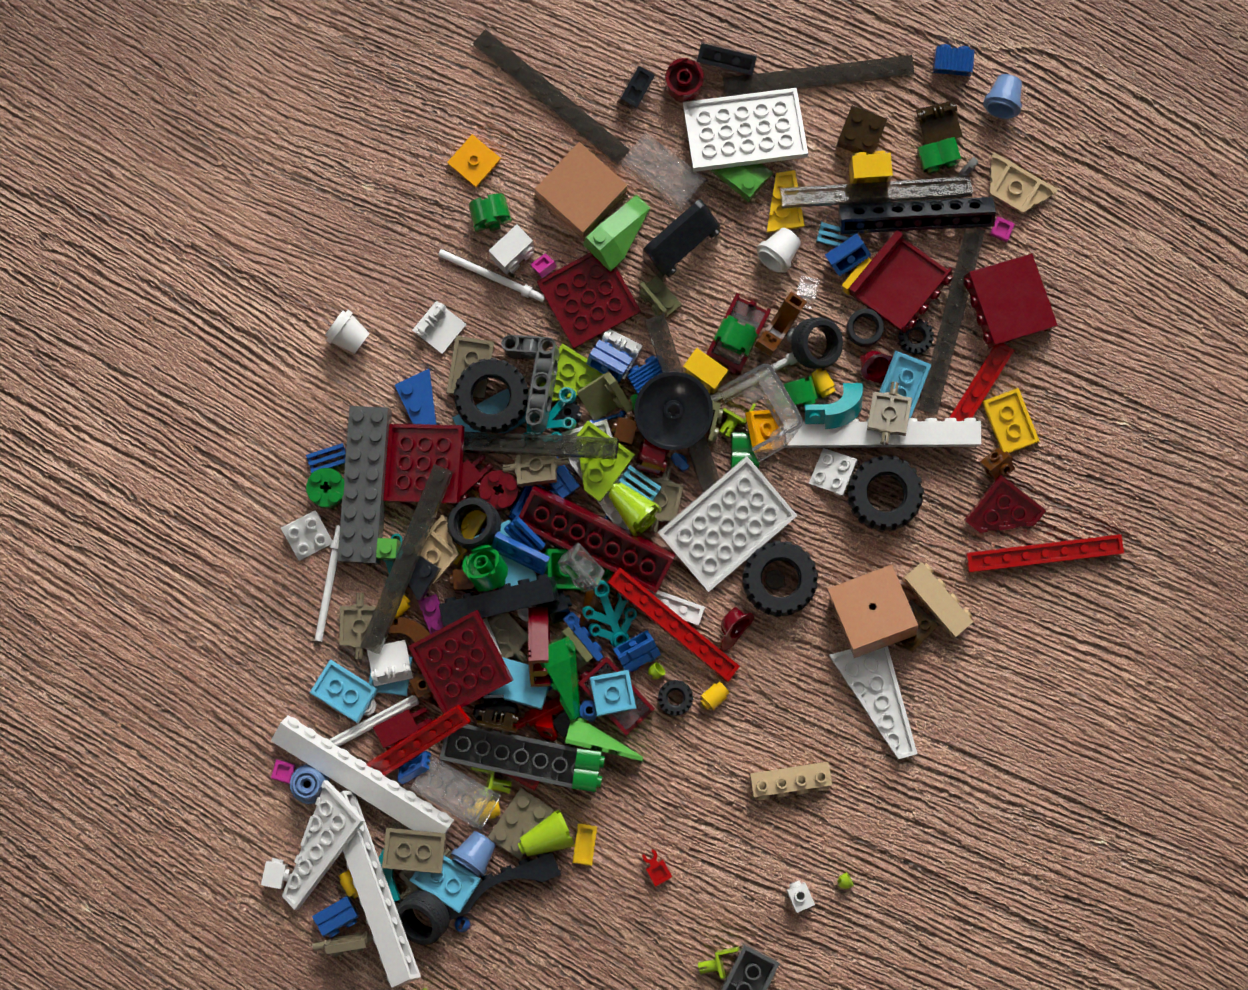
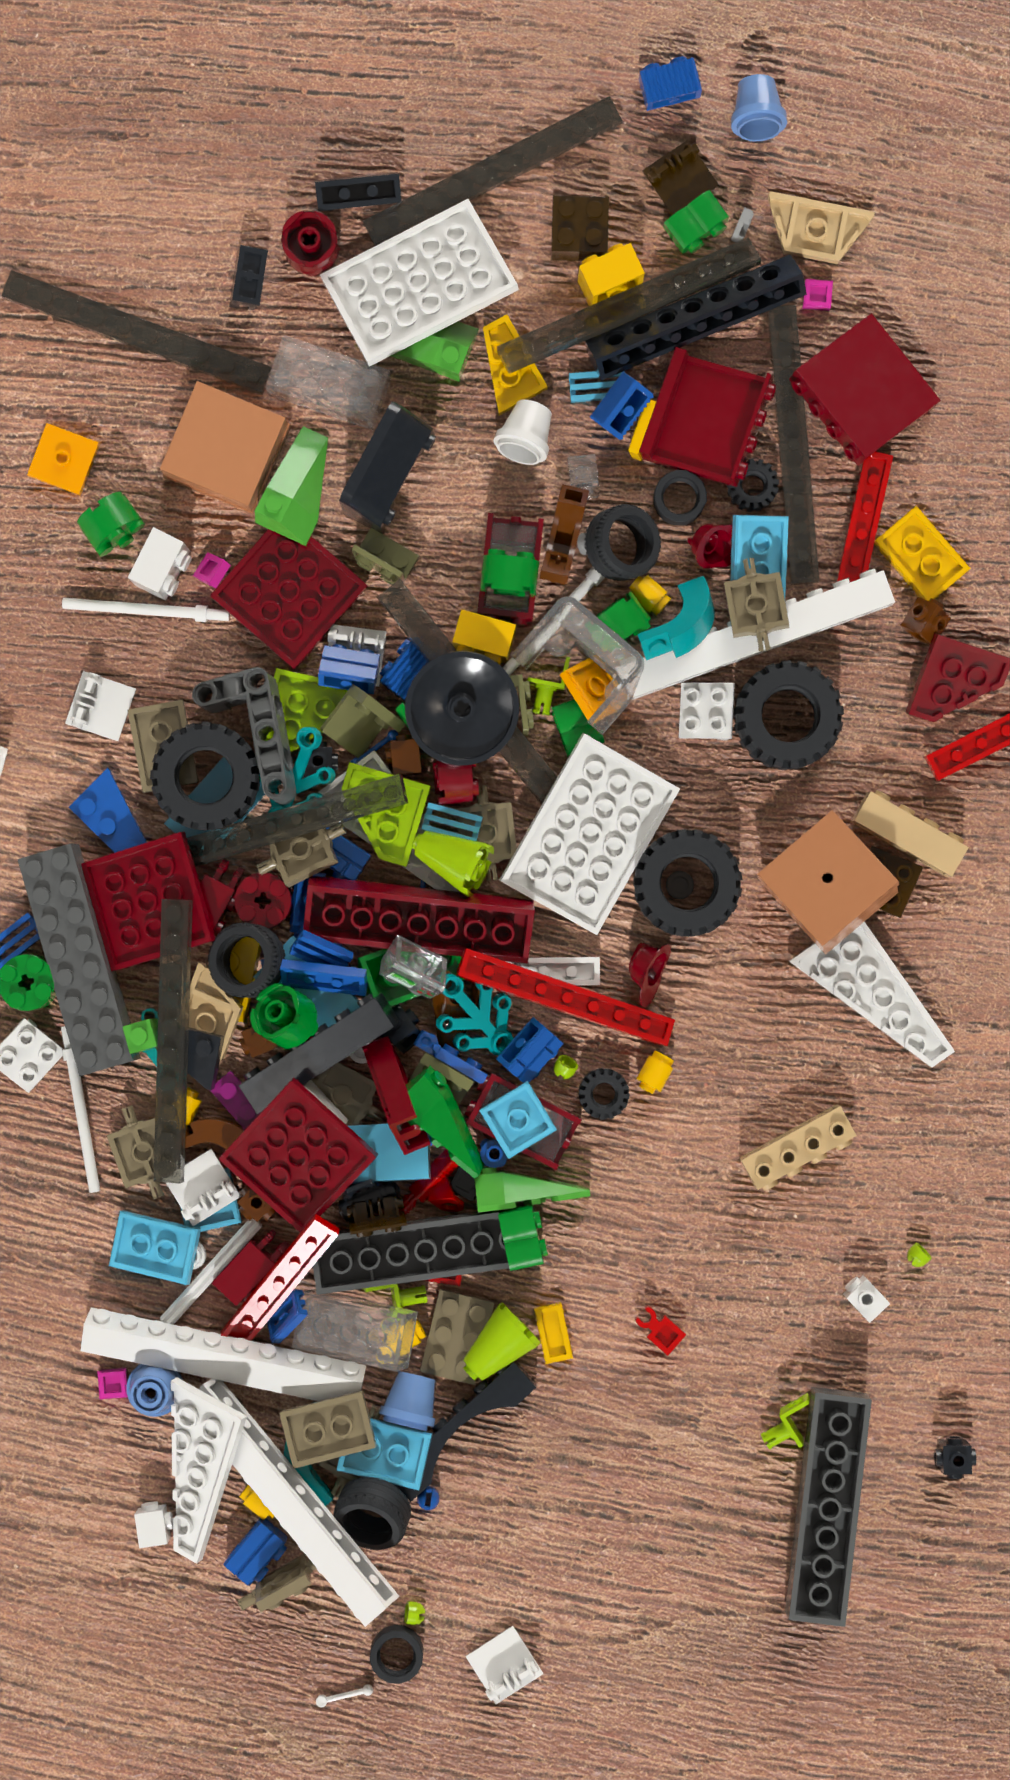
camera: 25 degrees left, 5 degrees up
(680, 461) = (495, 772): blue tile -> none

